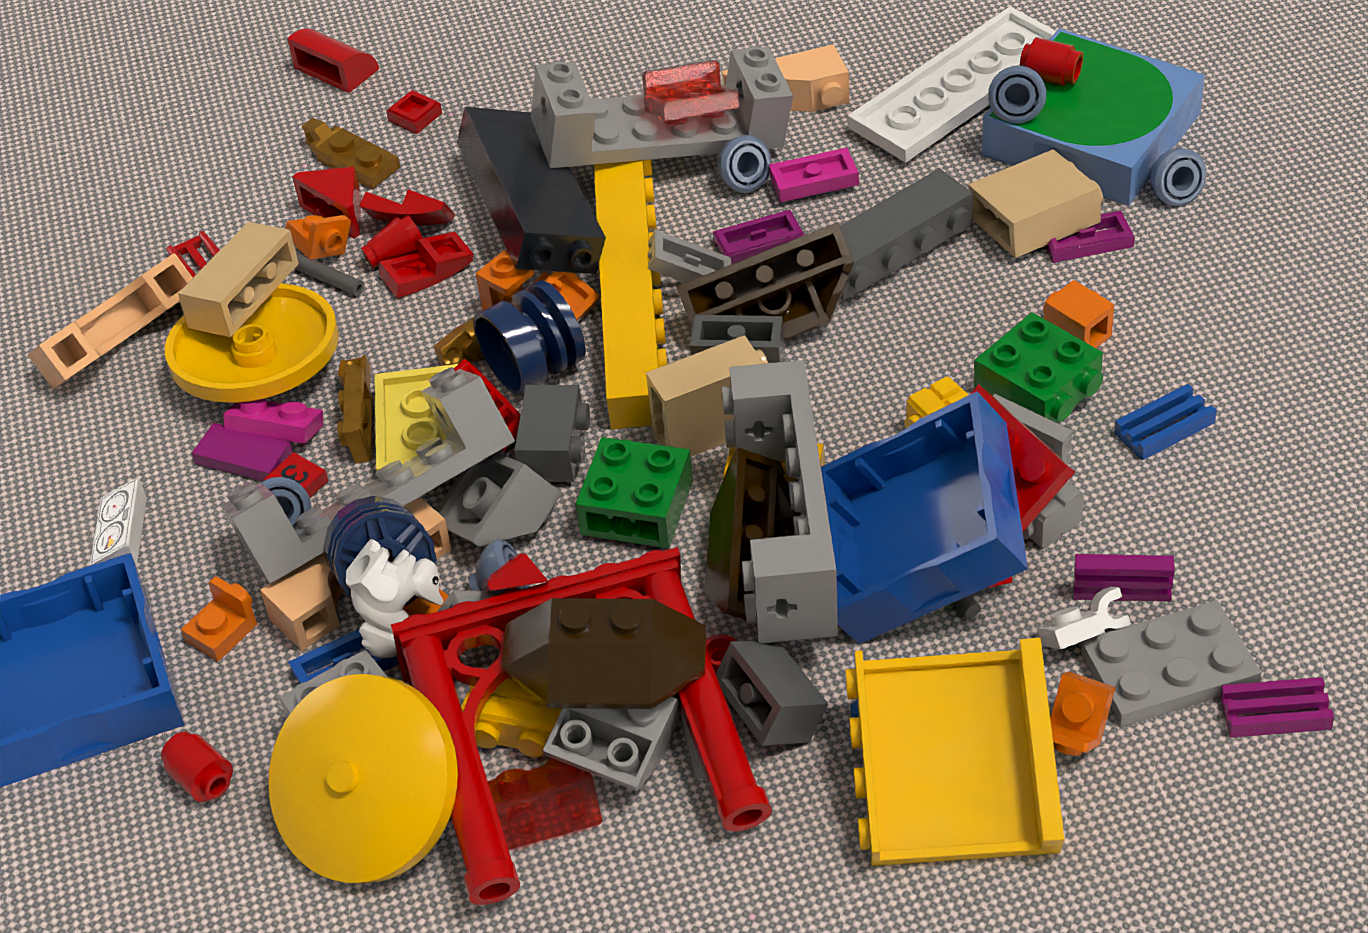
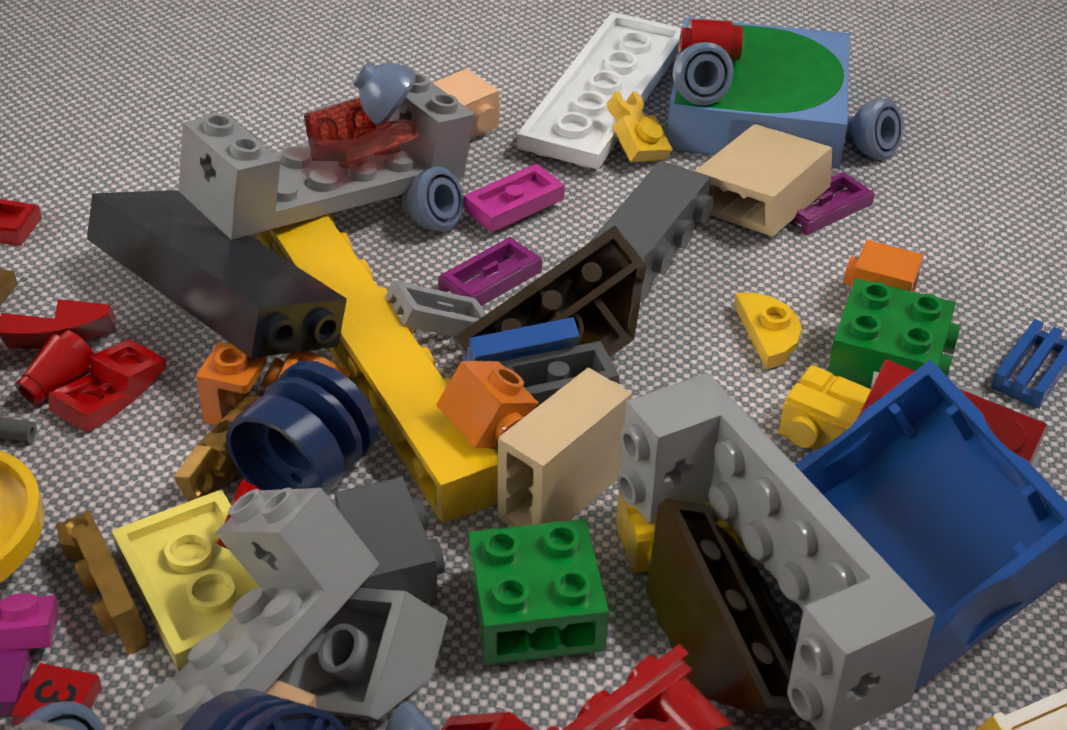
camera: 30 degrees left, 5 degrees down
(662, 339) = (485, 401): none -> orange brick
(690, 303) = (523, 341): none -> blue tile
(717, 60) = (383, 89): none -> sand blue brick
(954, 136) = (638, 133): none -> yellow plate
(958, 337) = (770, 325): none -> yellow plate

